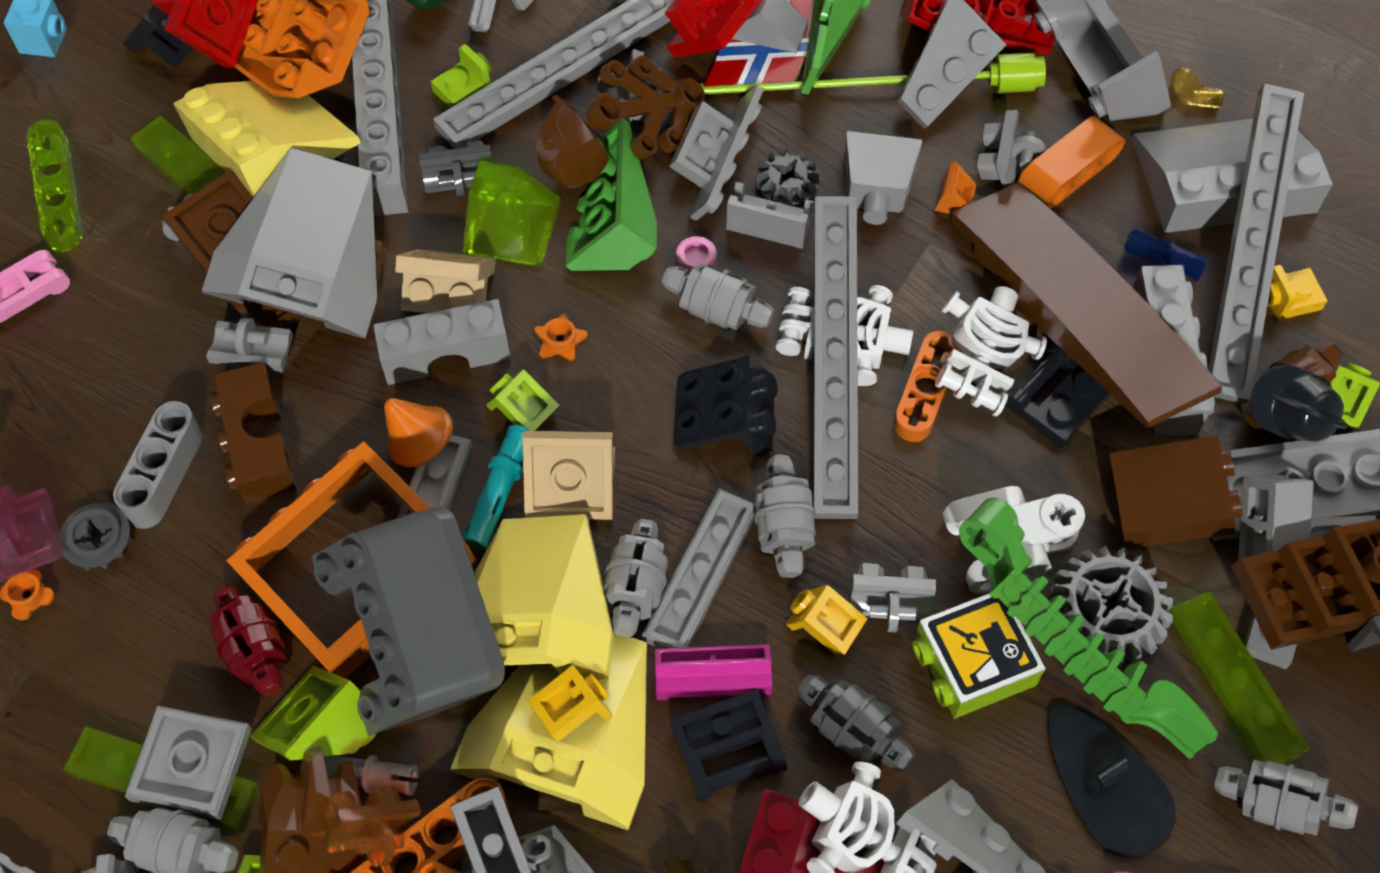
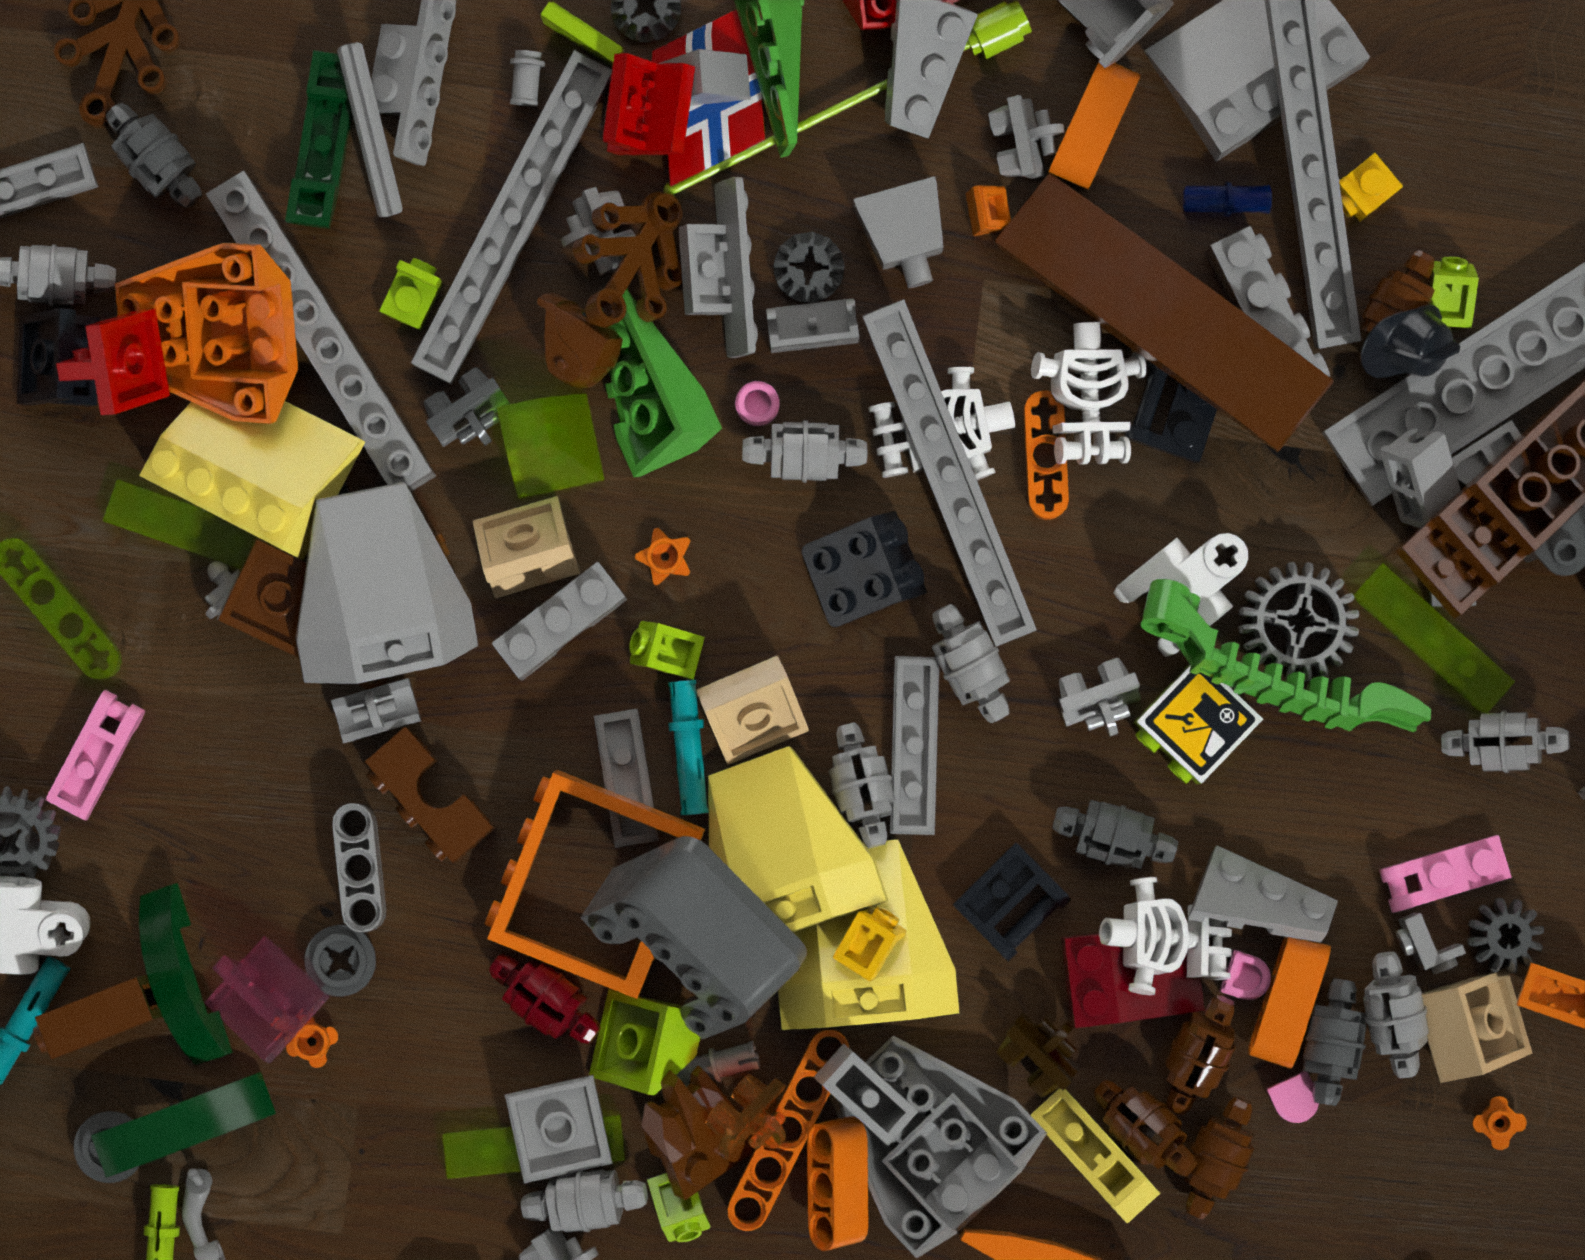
camera: 25 degrees left, 25 degrees up
(415, 432) = (588, 728): orange hat -> none
(712, 671) = (969, 839): dark pink piece -> none
(826, 618) = (1048, 745): yellow bracket -> none
(1109, 785) = (1351, 786): black shield -> none
(1175, 492) = (1320, 484): reddish brown brick -> none

